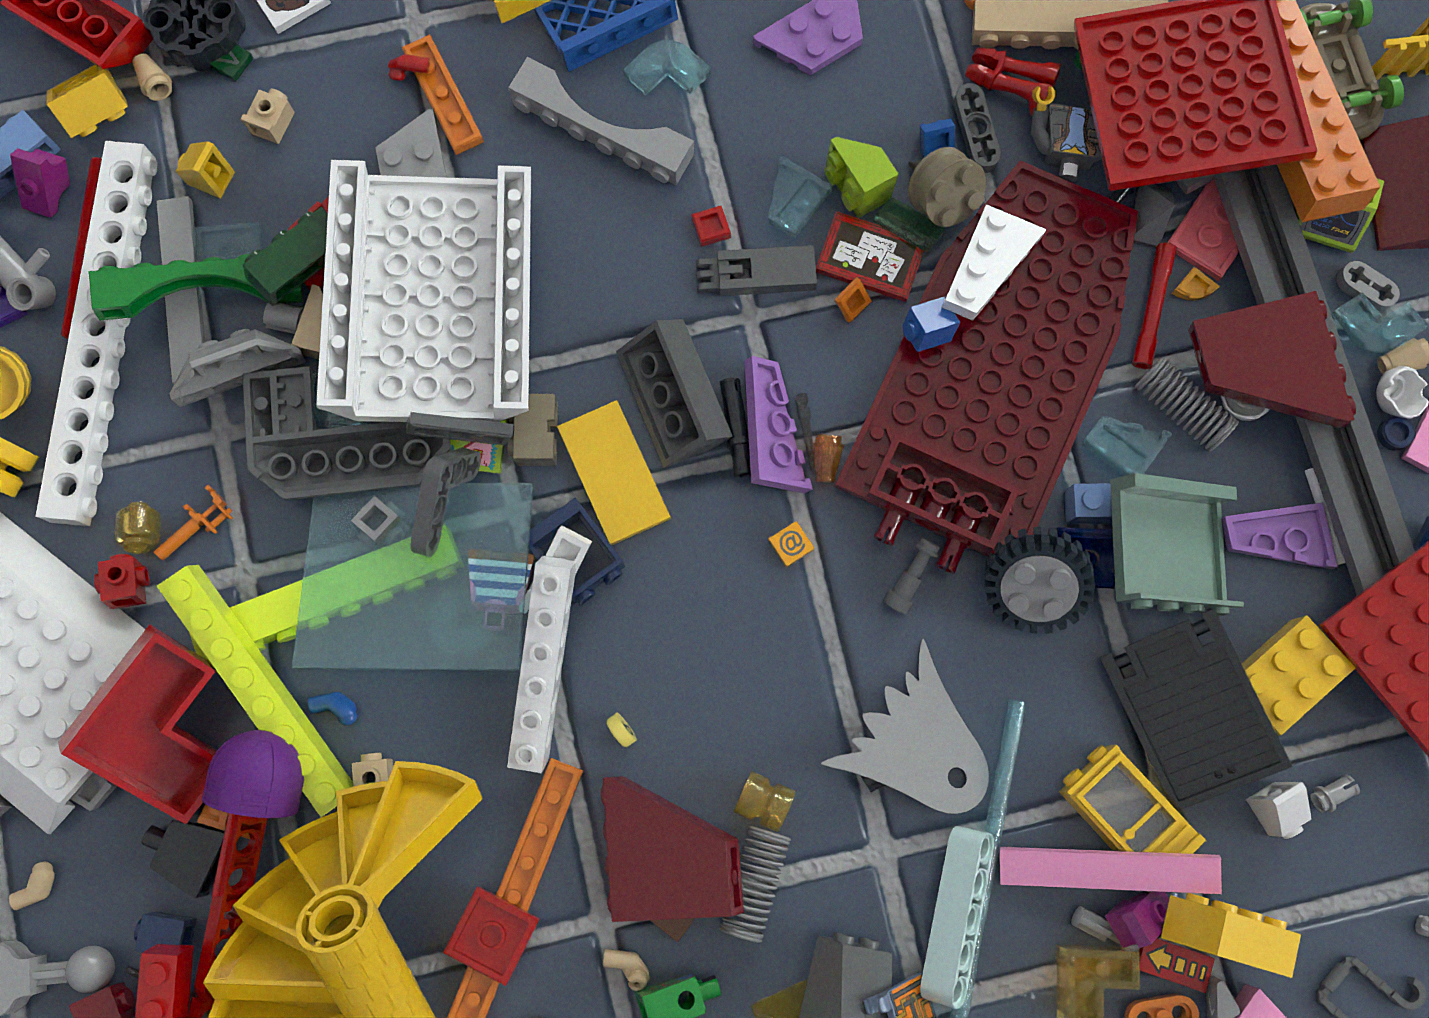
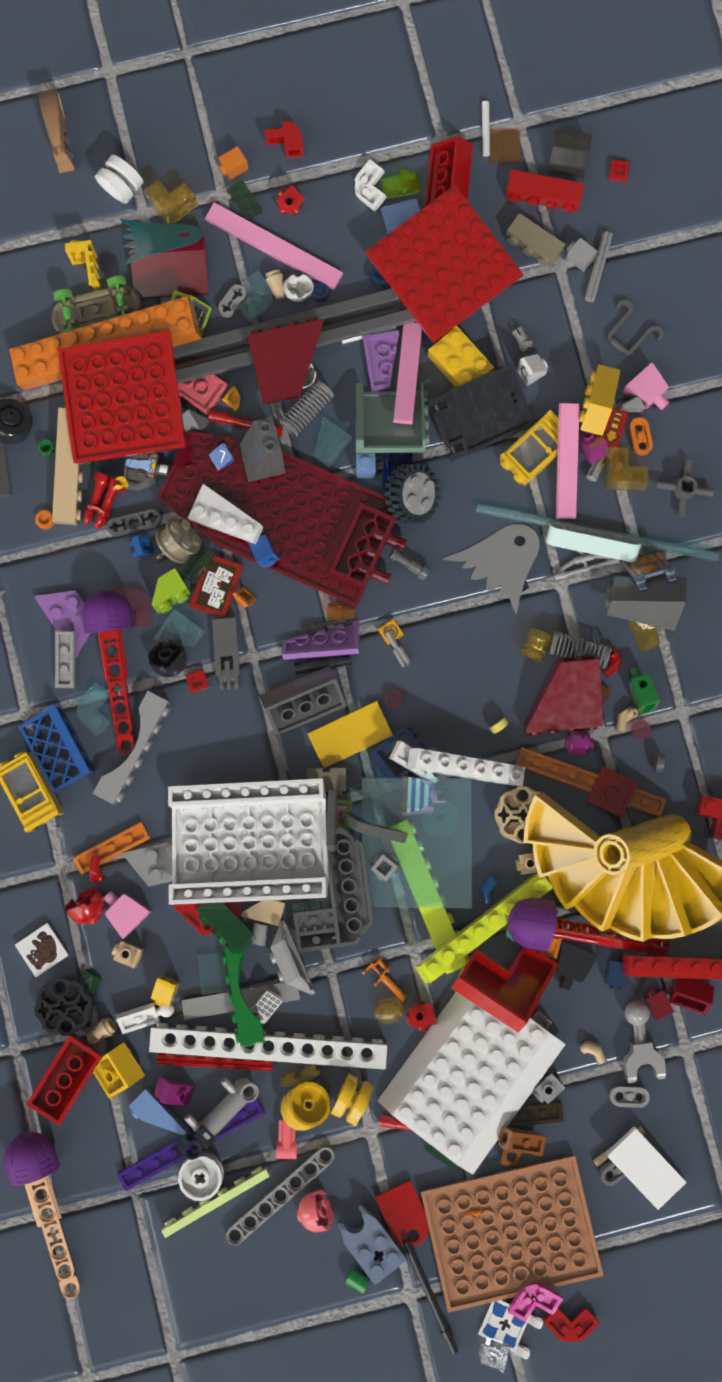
camera: 90 degrees left, 5 degrees up
(40, 368) = (306, 1074): none -> clear yellow slope
(163, 325) = (266, 1005): none -> white tile
(166, 136) = (142, 1017): none -> white plate
(334, 110) = (125, 913): none -> bright pink torso
(345, 51) = (86, 907): none -> red cylinder
(489, 748) = (511, 799): none -> tan connector
(585, 876) = (578, 742): none -> magenta head
(606, 995) = (640, 730): none -> clear pink tile
(674, 546) = (393, 698): none -> clear pink tile
(731, 949) = (614, 663): none -> red arm
(746, 173) = (168, 658): none -> black cylinder
(750, 21) = (65, 658): none -> light grey tile
(757, 555) = (398, 650): none -> light grey axle
(820, 75) = (109, 614): none -> piece
(849, 124) = (140, 606): none -> clear pink plate
(905, 903) = (562, 574): none -> light grey piece
(1093, 261) = (221, 457): none -> slope
(1110, 321) = (262, 451): none -> dark grey slope
(1258, 578) = (407, 373): none -> bright pink tile

